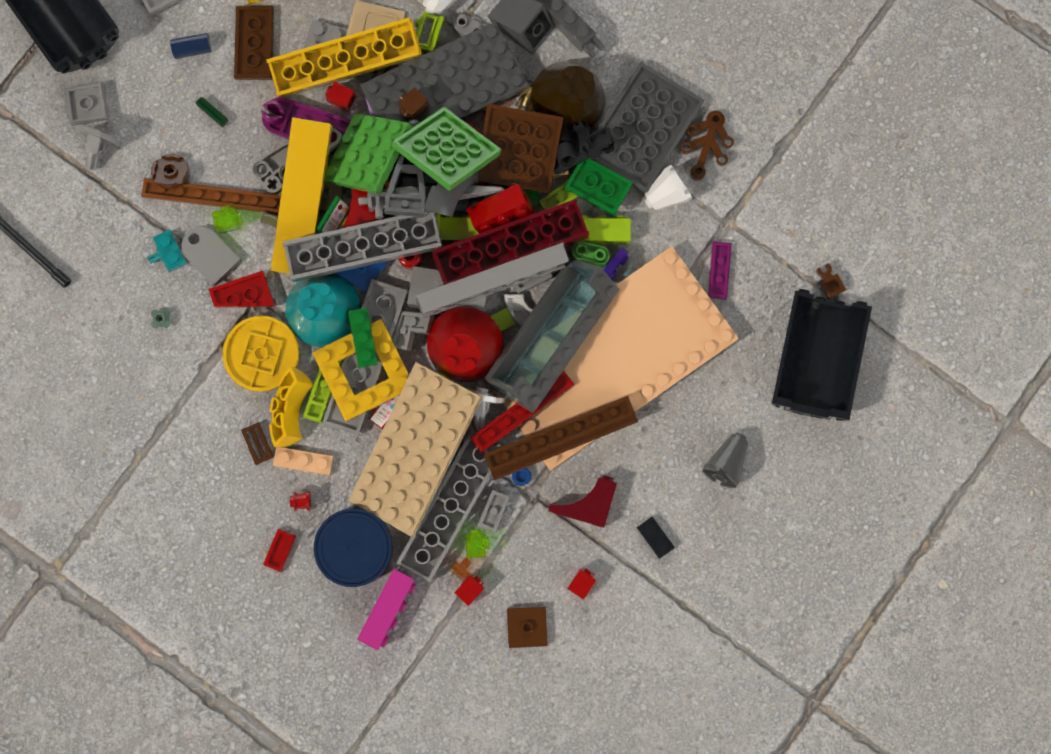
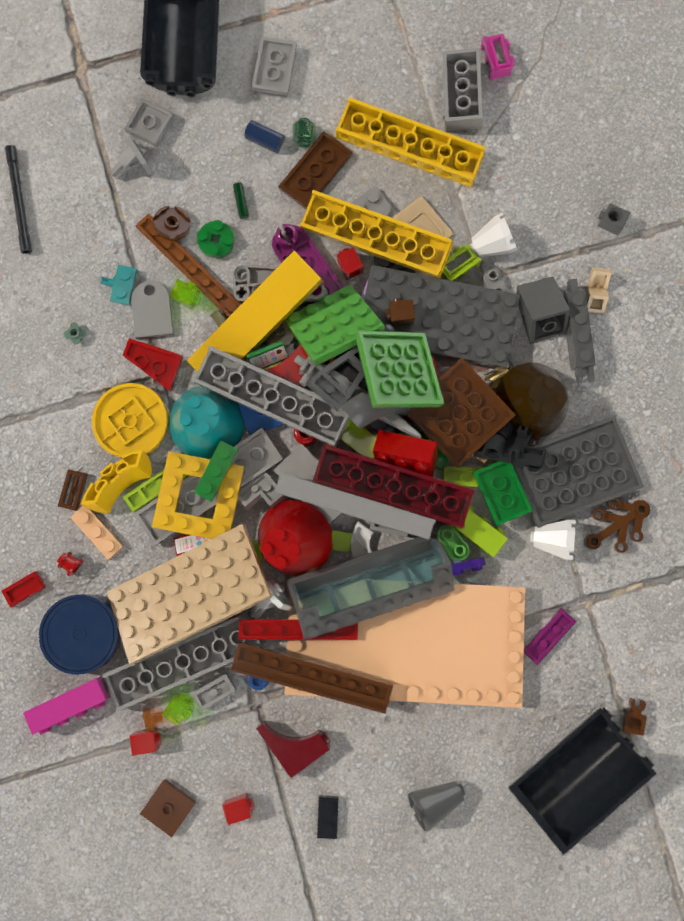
camera: 40 degrees right, 0 degrees up
(210, 149) = (206, 234): none -> green plate
(221, 18) = (304, 132): none -> clear green head

